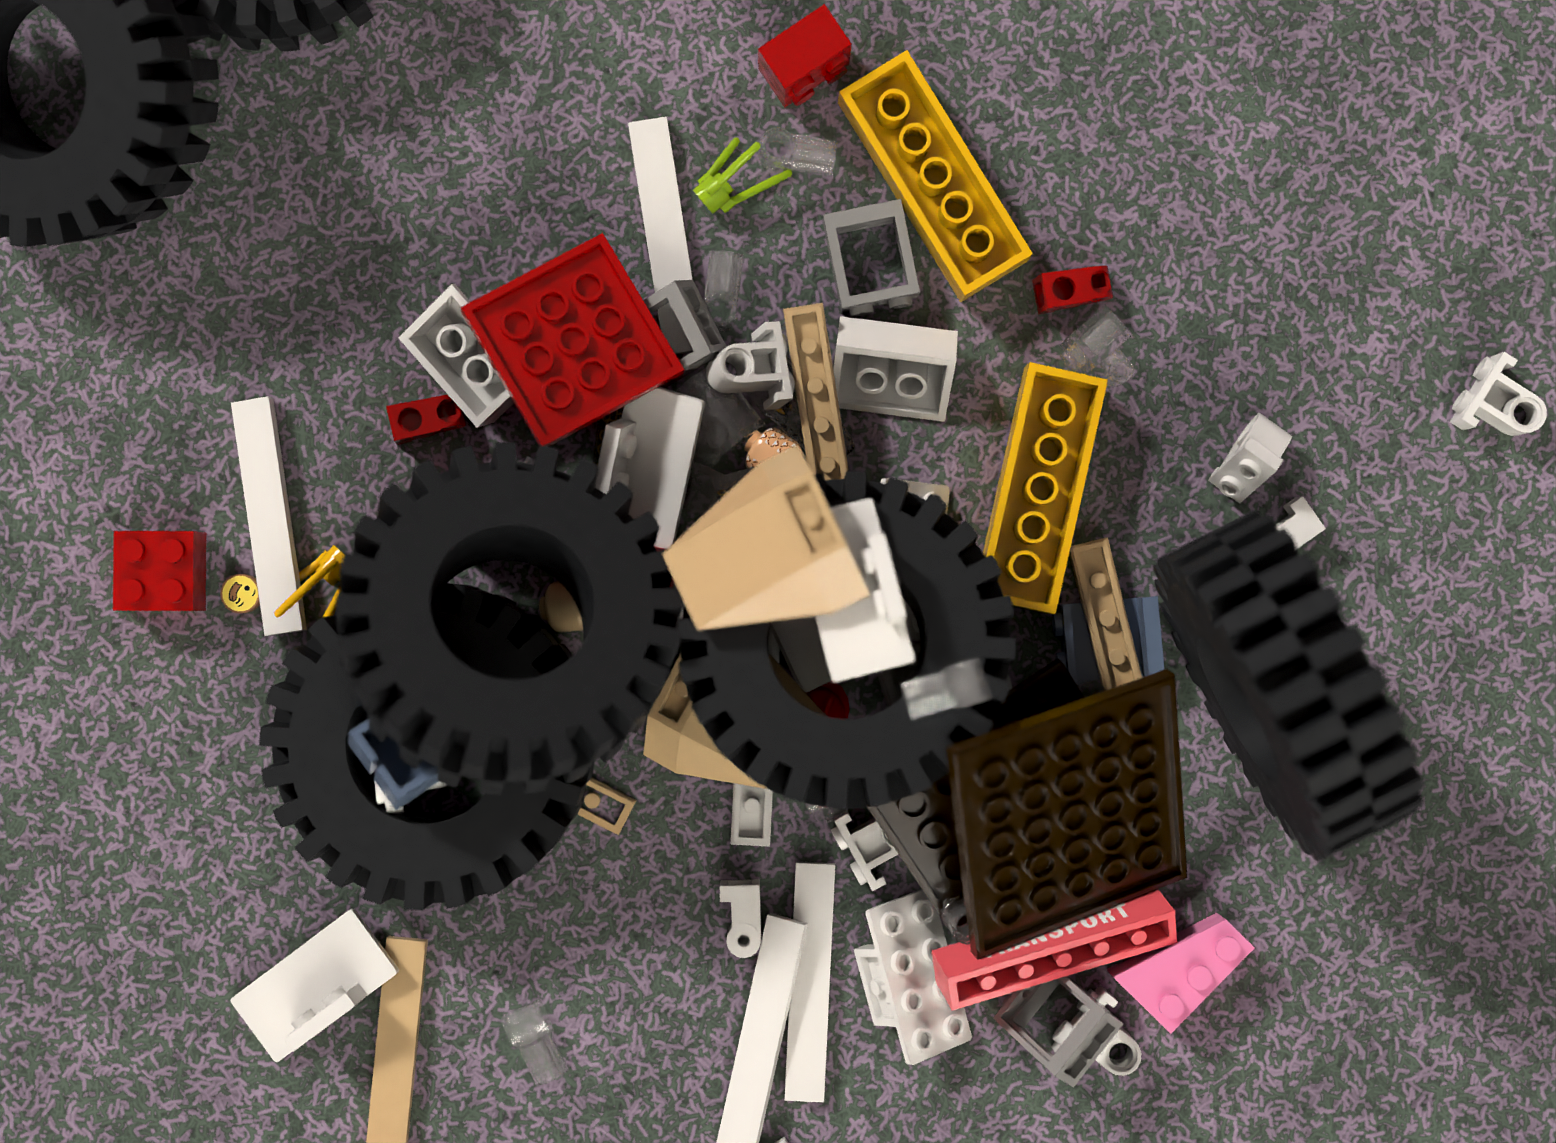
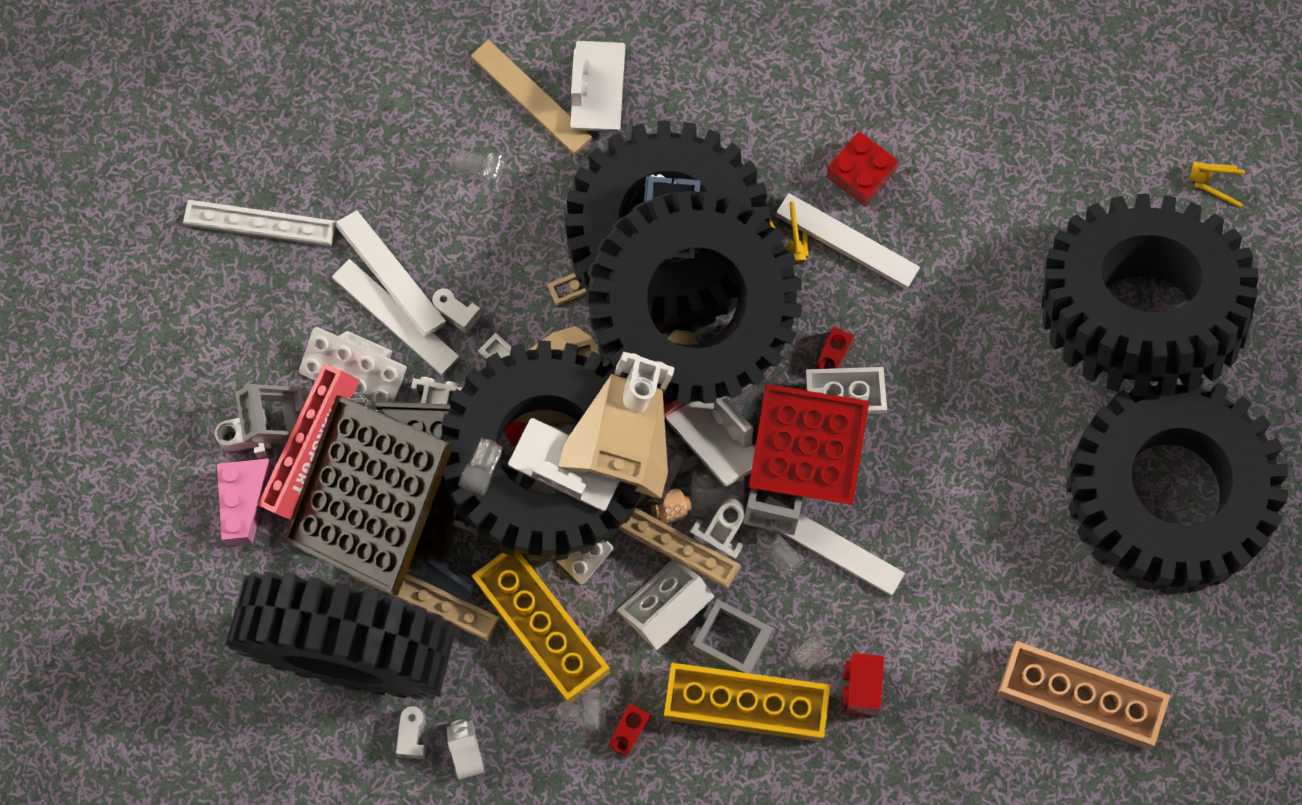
camera: 125 degrees right, 15 degrees down
(240, 593) = (820, 198): light yellow tile -> none
(673, 584) = (642, 380): none -> white pin
(714, 188) = (833, 589): lime plant -> none

